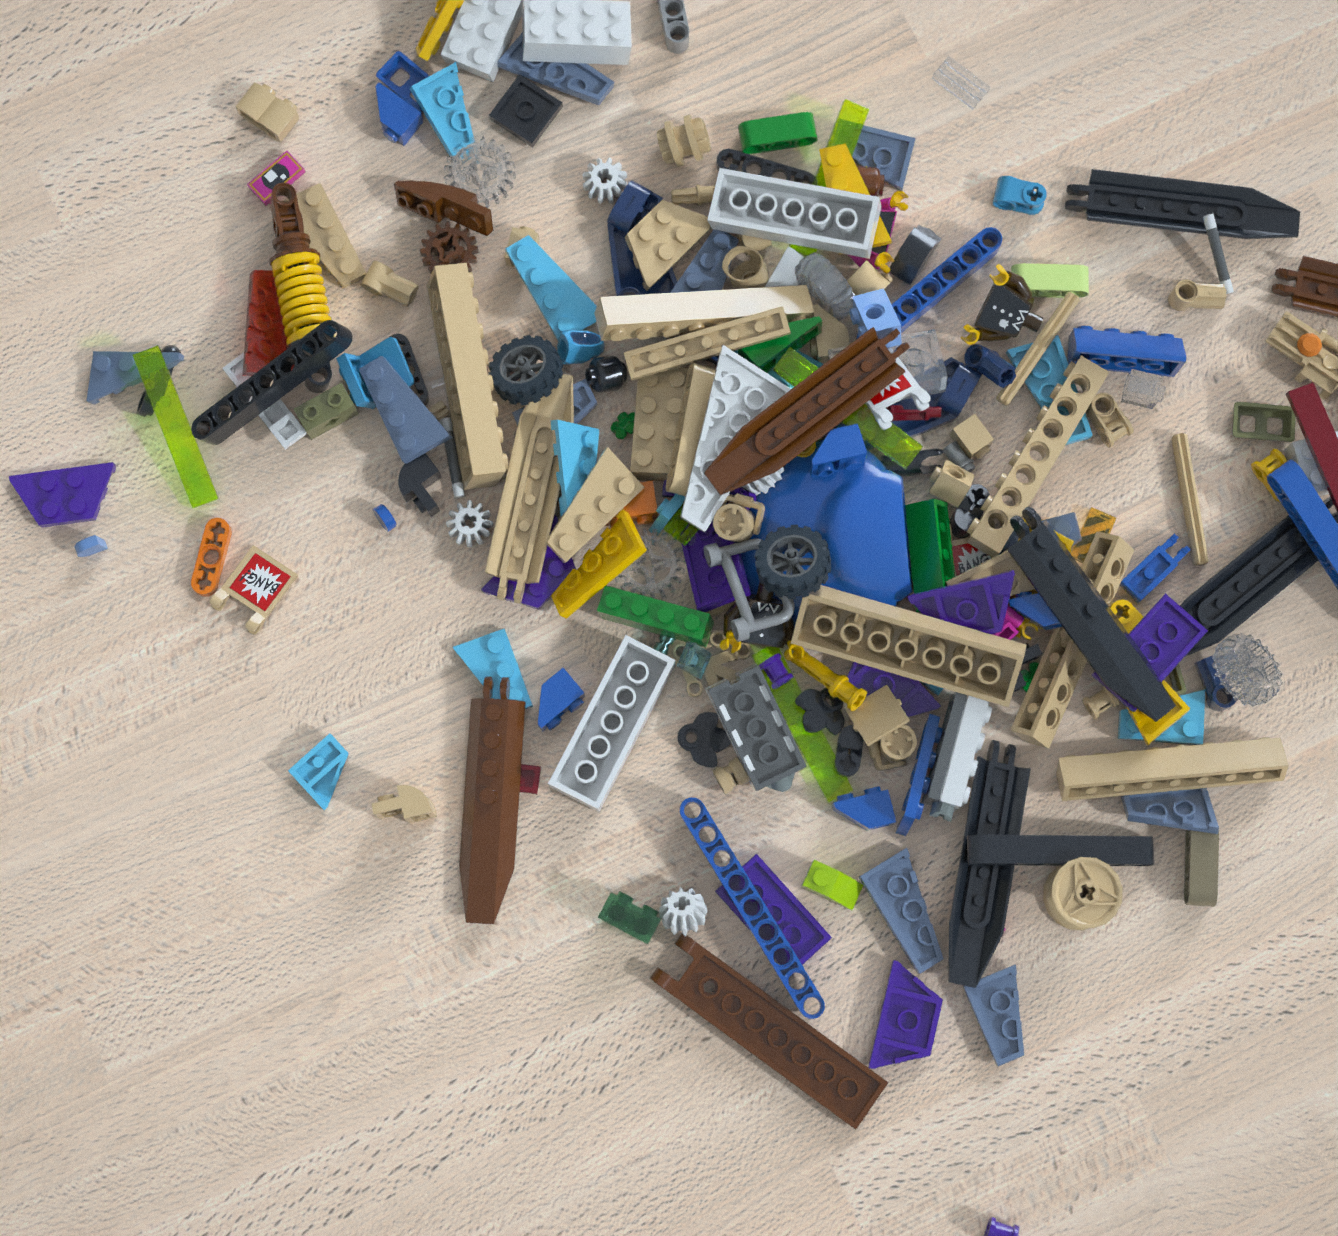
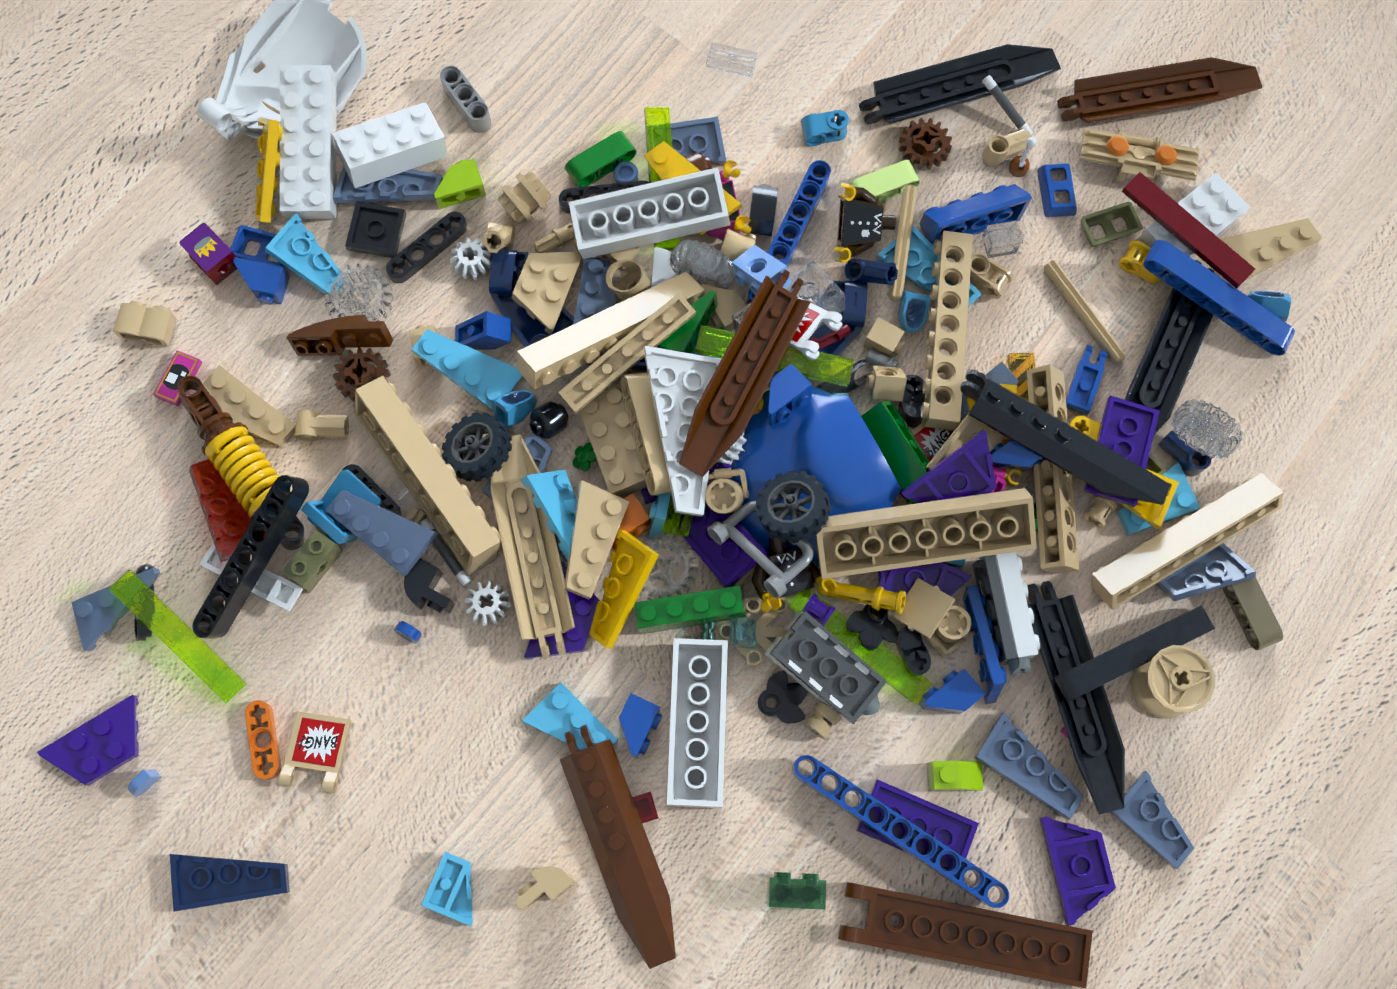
camera: 30 degrees left, 5 degrees down
(117, 665) = (216, 881): none -> dark blue wing
(357, 67) = (209, 253): none -> piece
(566, 145) = (430, 250): none -> black beam
(583, 259) = (484, 331): none -> blue slope
(627, 99) = (460, 184): none -> lime slope
(640, 170) = (498, 237): none -> tan piece
(682, 911) = (841, 873): white gear -> none
(797, 157) = (625, 172): none -> medium blue tile
(1014, 422) = (913, 311): none -> rock
(1126, 255) = (928, 140): none -> reddish brown gear
(1204, 317) = (1021, 161): none -> hinge
(1221, 356) = (1048, 187): none -> blue piece

